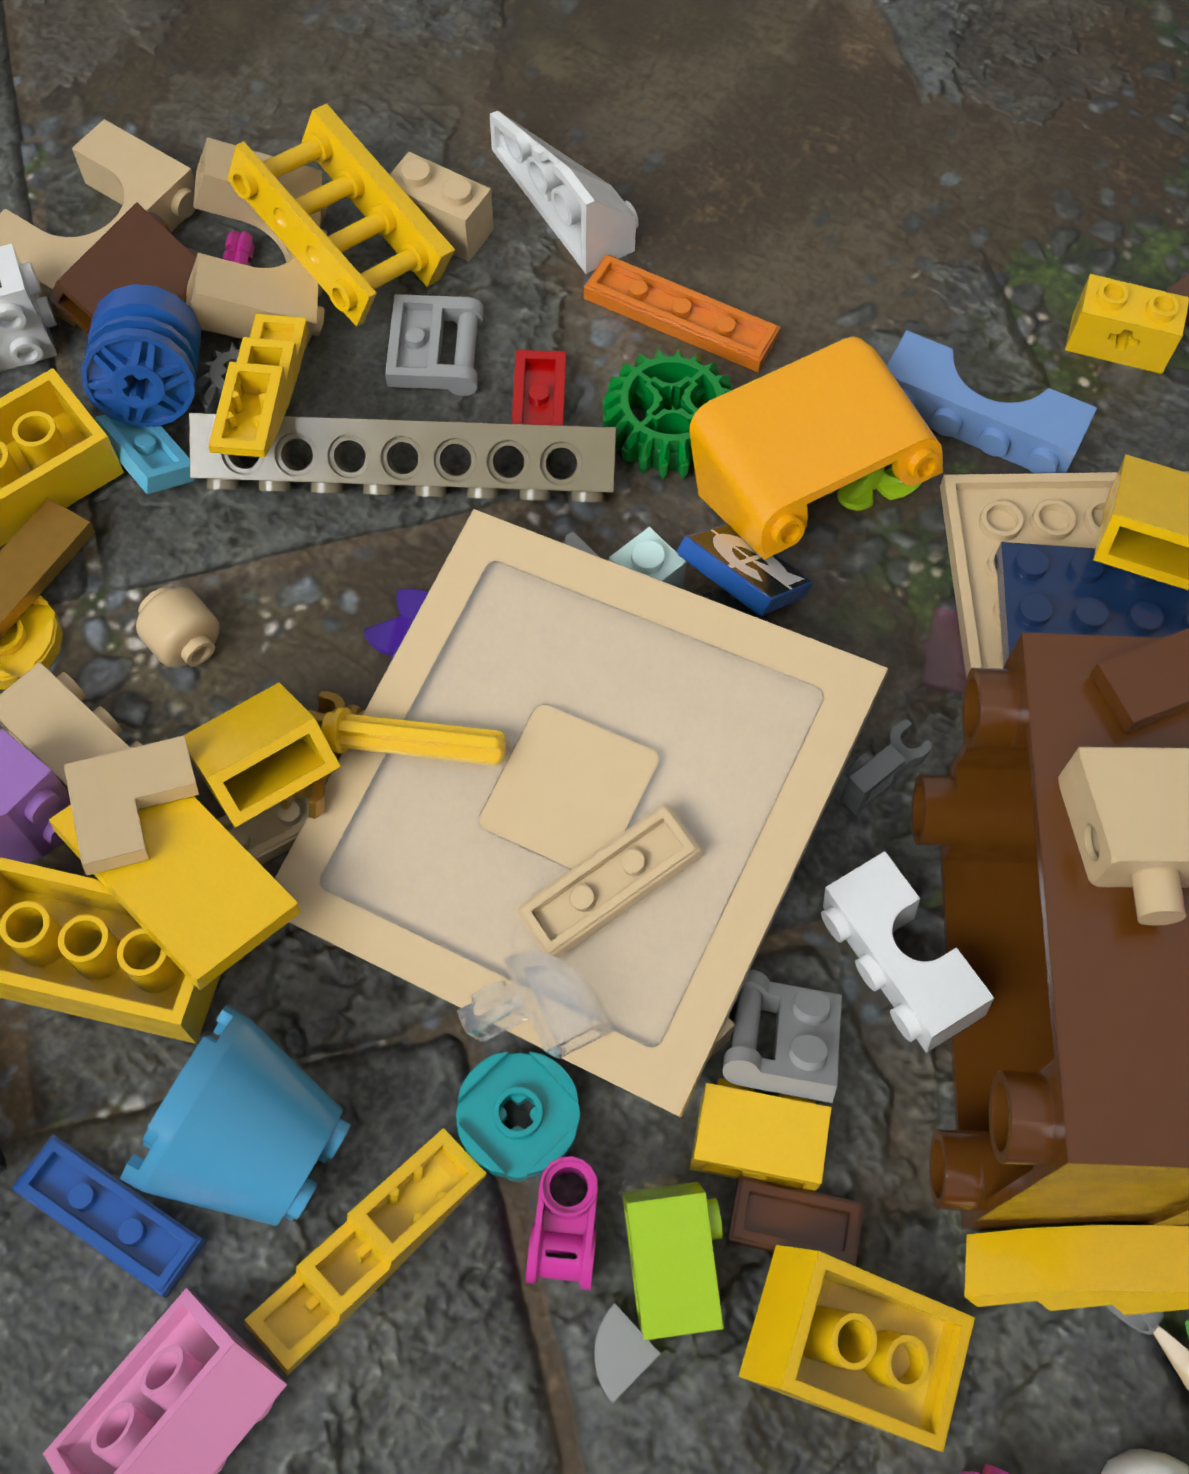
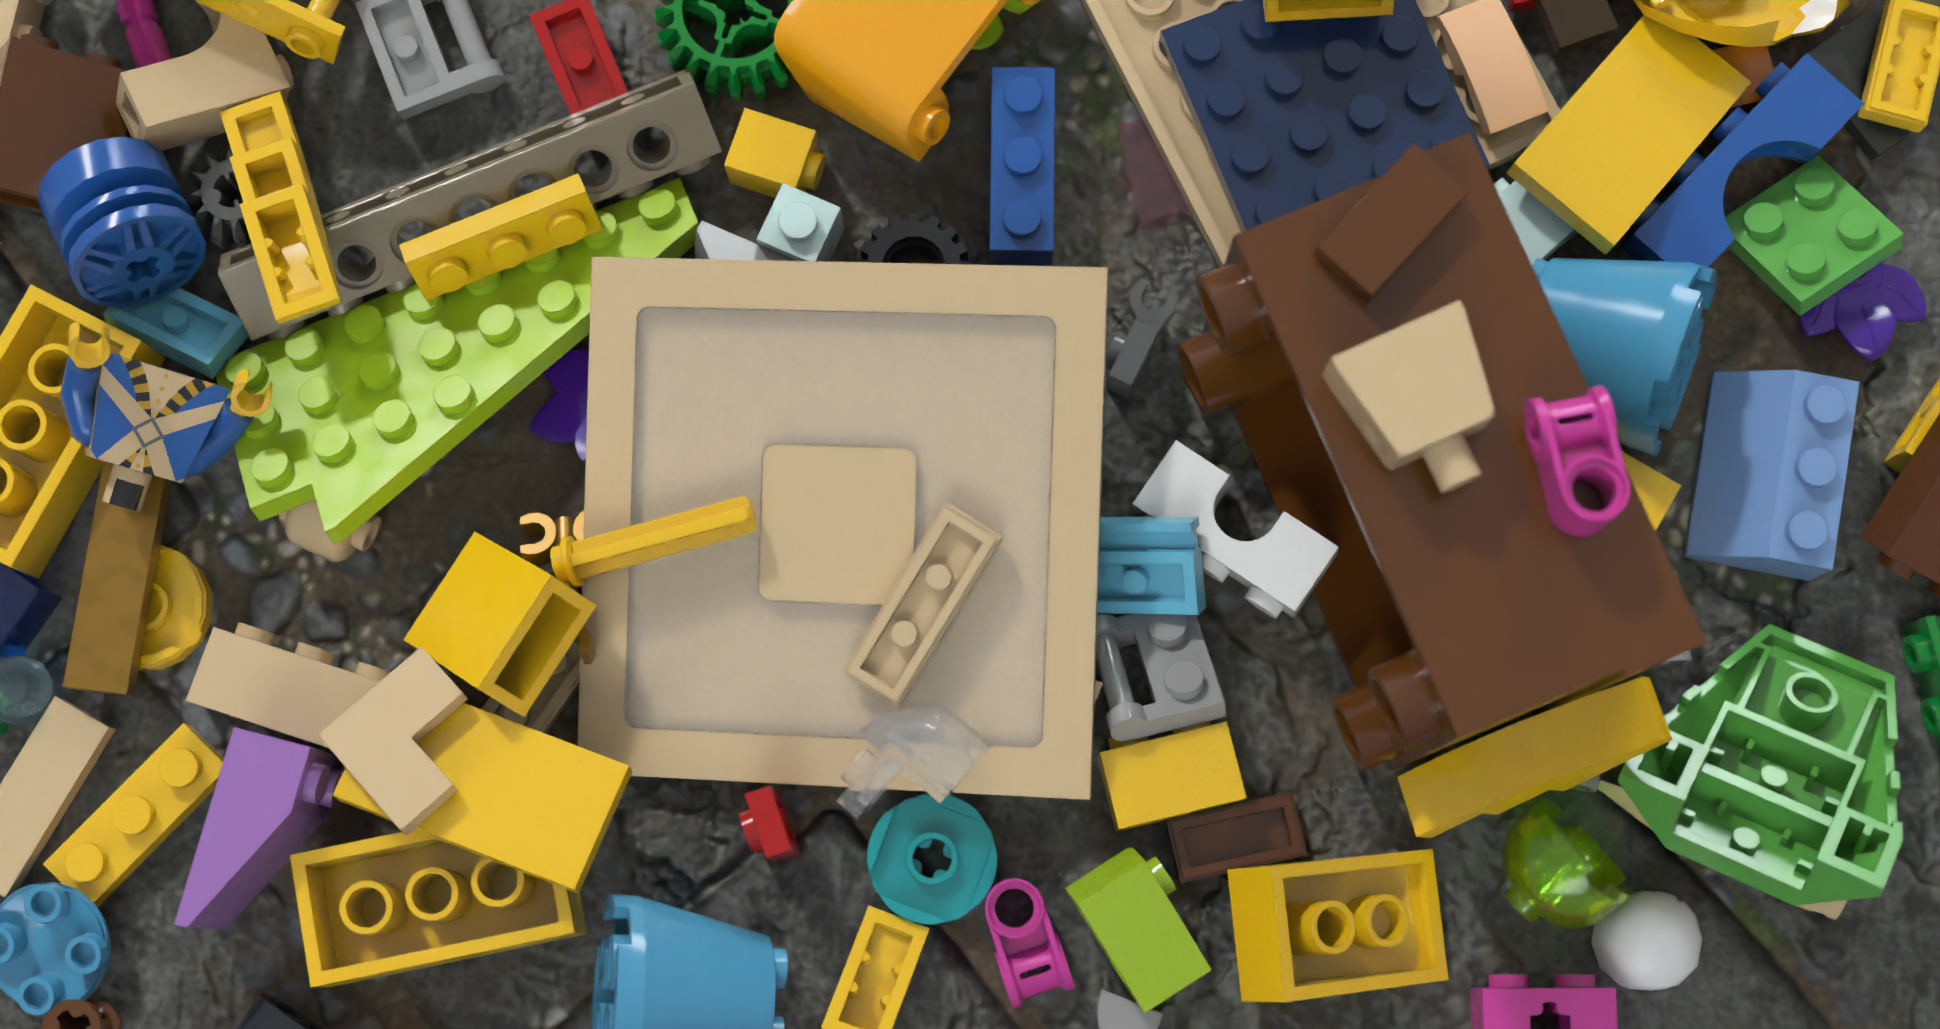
camera: 20 degrees left, 15 degrees up
(78, 484) = (149, 417): none -> torso
(276, 551) = (405, 379): none -> lime wing
(391, 1014) = (768, 825): none -> red plate
(413, 478) = (501, 237): none -> yellow plate
(653, 504) = (773, 153): none -> yellow brick
(742, 572) = (899, 189): tile -> none
(817, 945) = (1150, 566): none -> medium azure plate
(851, 583) = (1022, 166): none -> blue brick
(1090, 1393) = (1559, 870): none -> clear neon green cylinder

